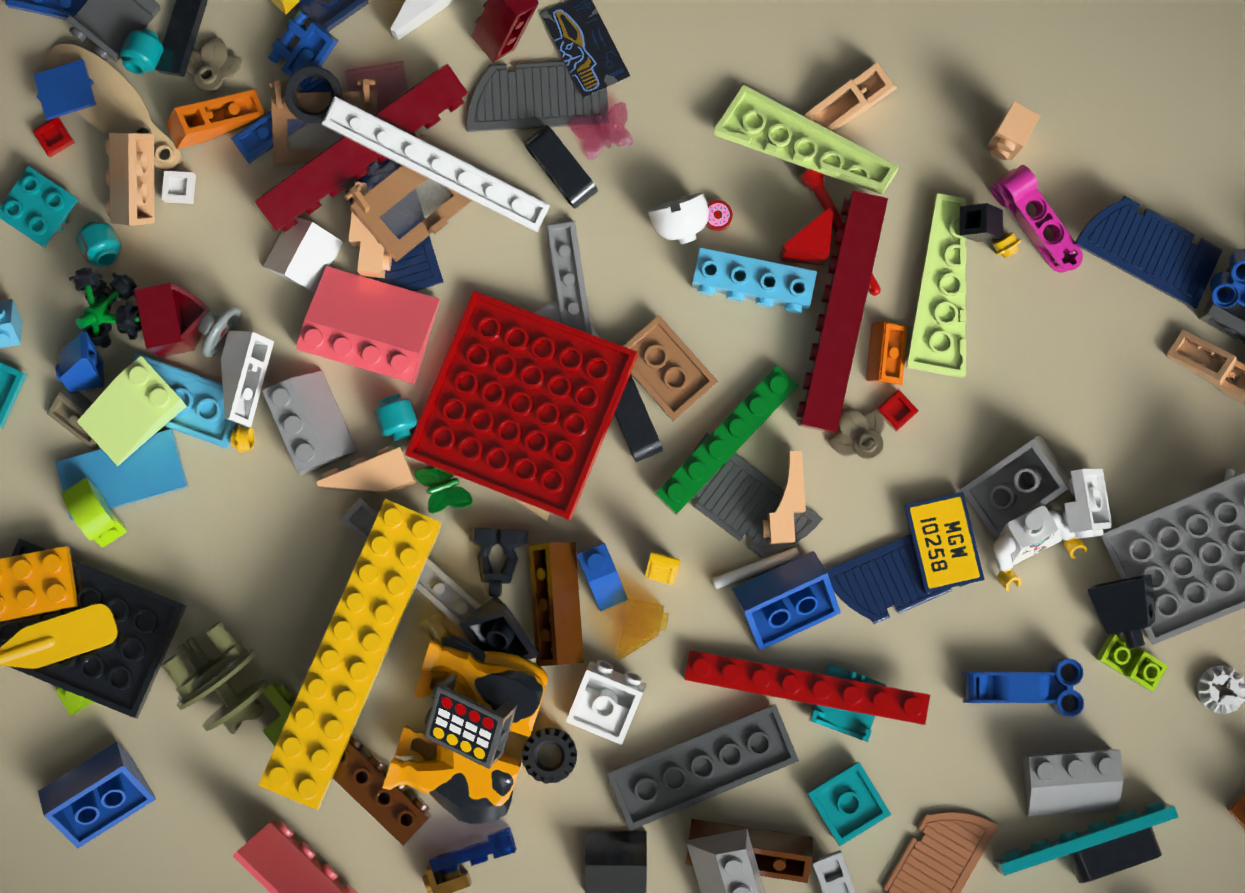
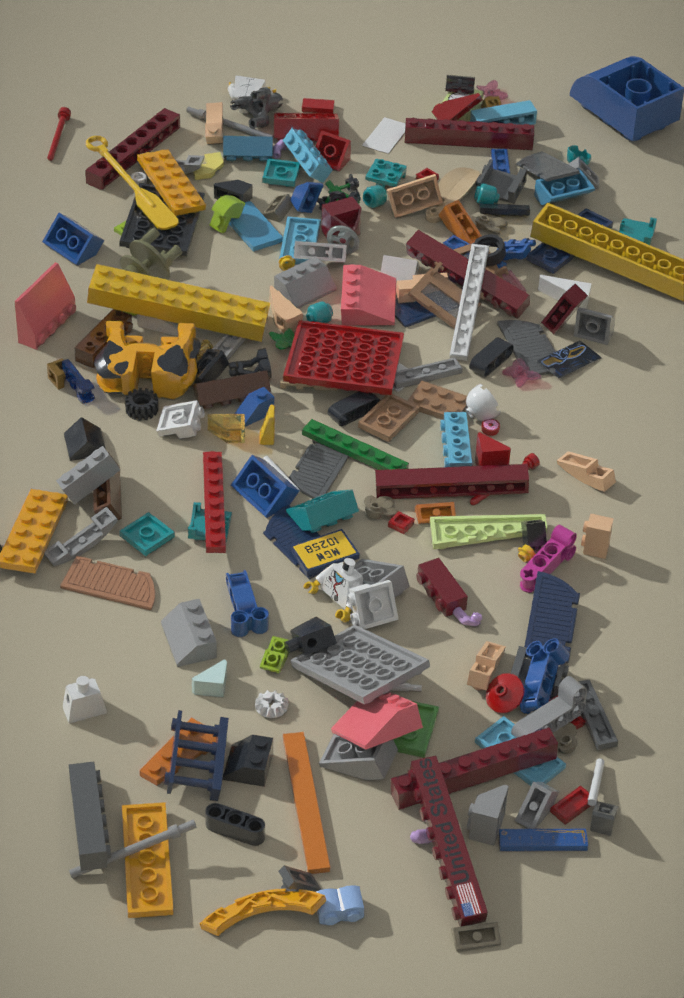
camera: 75 degrees right, 40 degrees down
(27, 484) = (236, 188): none -> black slope
(65, 89) = (453, 170): blue piece -> none
(130, 411) = (289, 216): yellowish green slope -> none
(178, 187) = (417, 220): white plate -> none
(467, 724) = (151, 343): panel -> none
(642, 279) = (436, 400): none -> medium nougat plate
(702, 767) = (152, 468): dark grey plate -> none
(780, 524) = (327, 477): light nougat slope -> none
(785, 134) = (550, 445): yellowish green wing -> none
(859, 524) = (324, 510): none -> teal slope
(1054, 389) = (441, 586): none -> dark red brick
(1098, 833) = (157, 650): teal plate -> none
(1115, 855) = (147, 662): black beam -> none
(1116, 369) = (465, 619): none -> lavender arm
(1172, 767) = (211, 681): none -> light aqua slope

